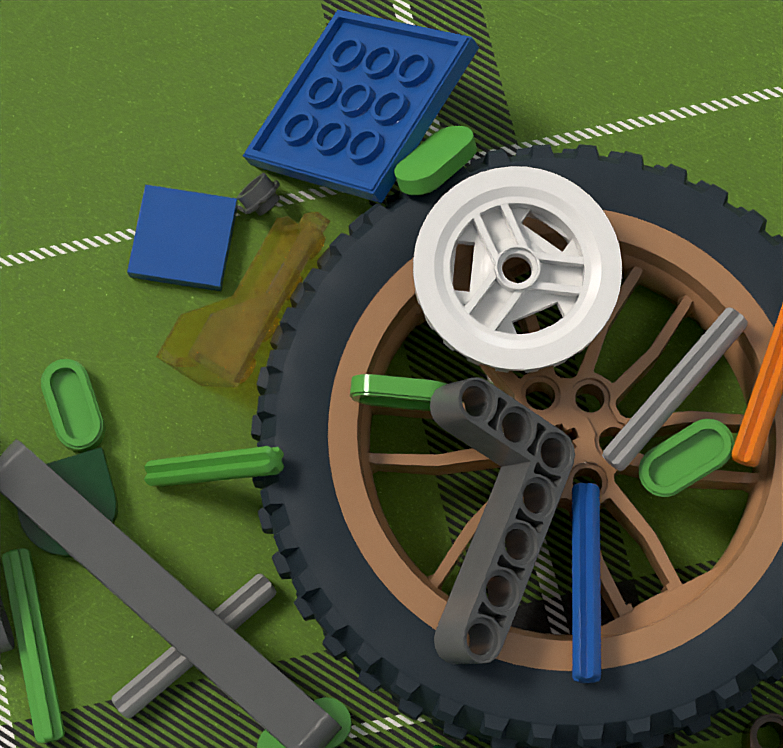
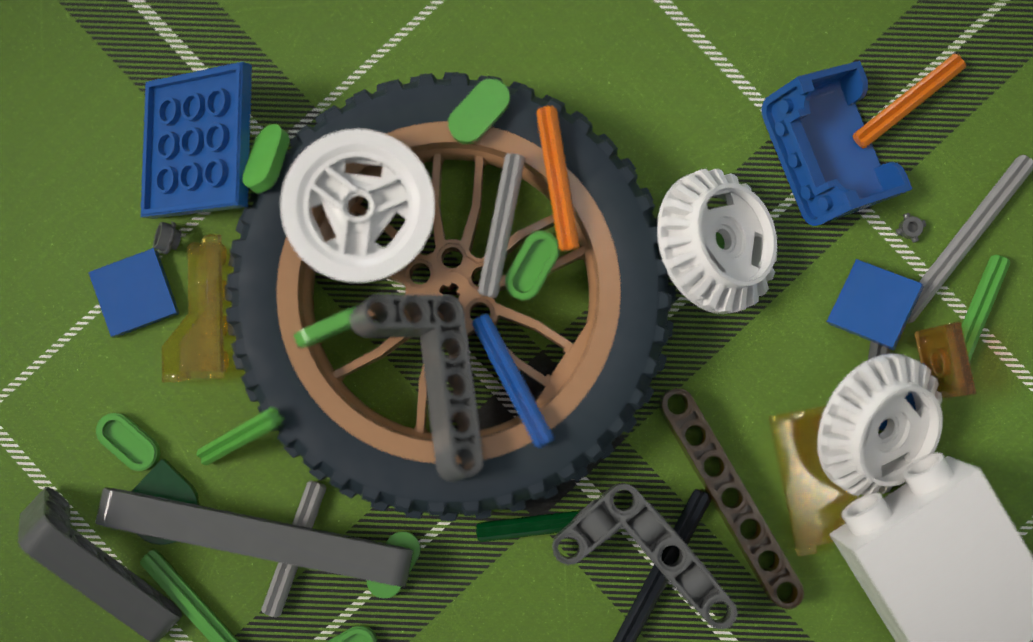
camera: 25 degrees left, 10 degrees up
(721, 241) = (479, 111): none -> bright green tile

